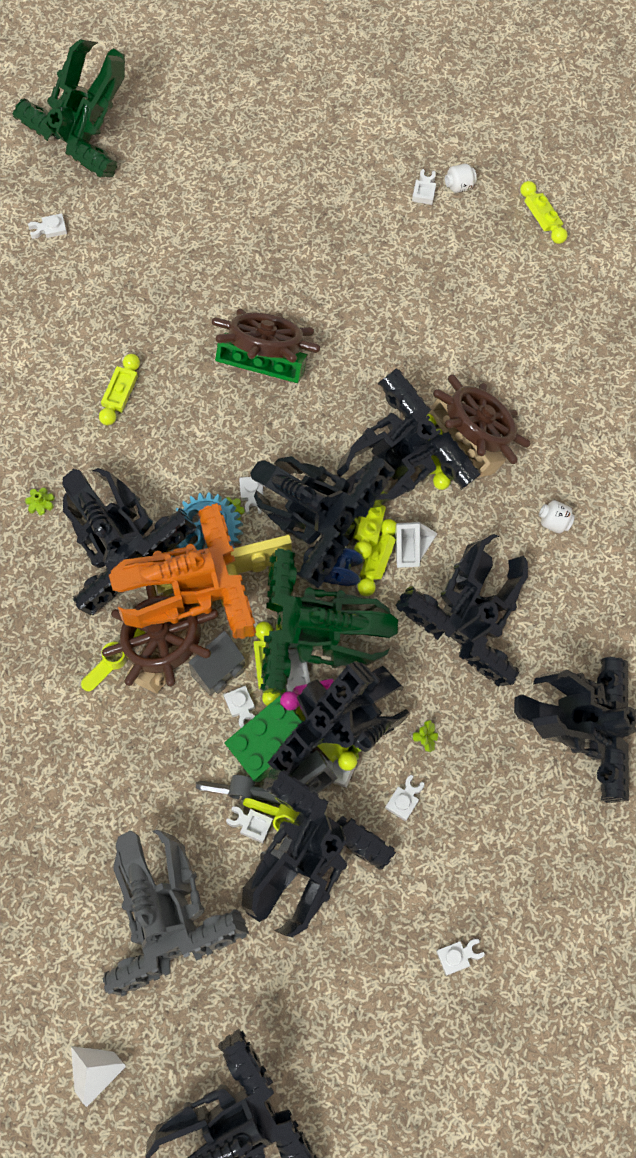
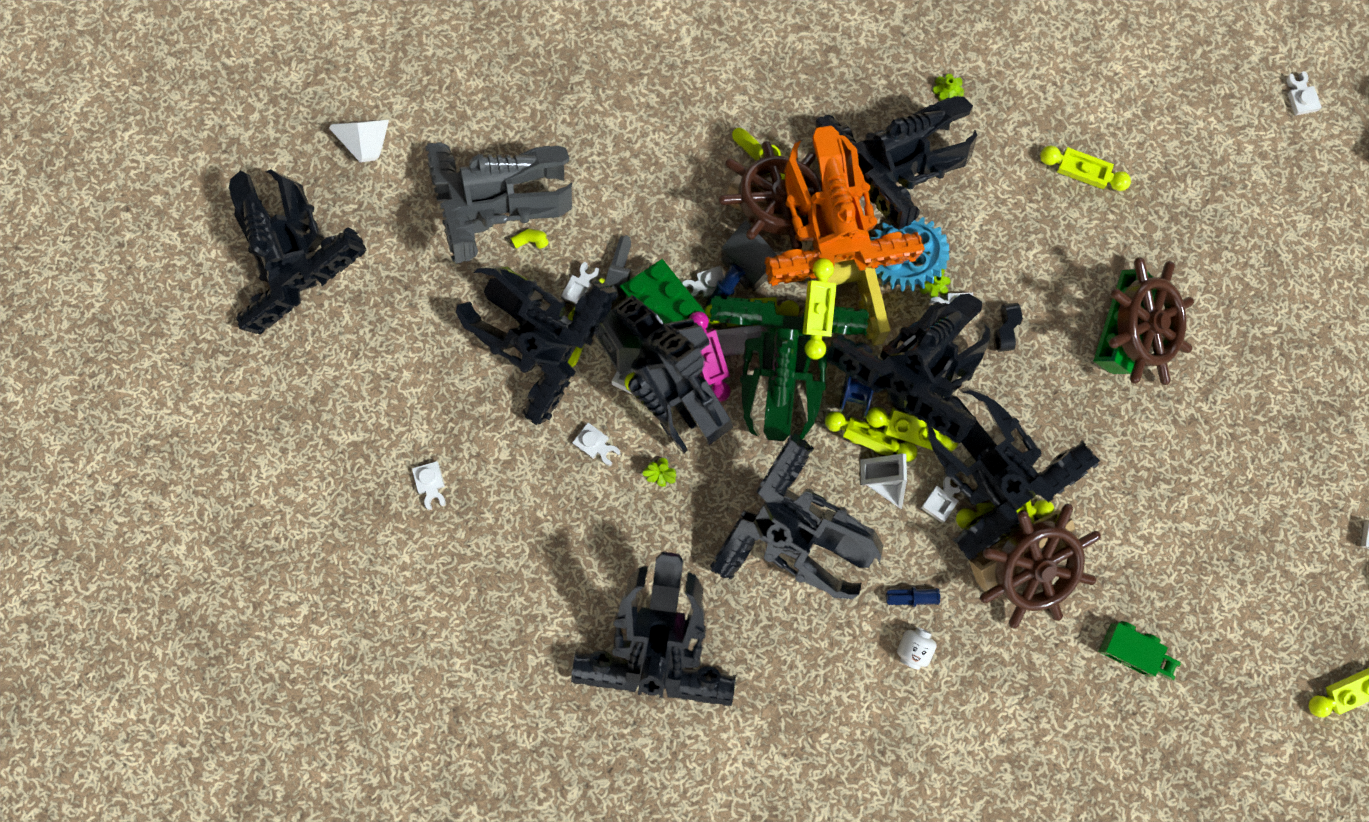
camera: 95 degrees right, 10 degrees up
(202, 869) = (530, 235): none -> neon yellow arm
(246, 684) = (726, 286): none -> dark blue axle
(263, 446) = (1005, 336): none -> black piece
(279, 587) = (819, 308): none -> neon yellow plate
(428, 500) = (941, 501): none -> white plate
(512, 521) = (913, 596): none -> dark blue axle
(535, 355) = (1138, 651): none -> green brick

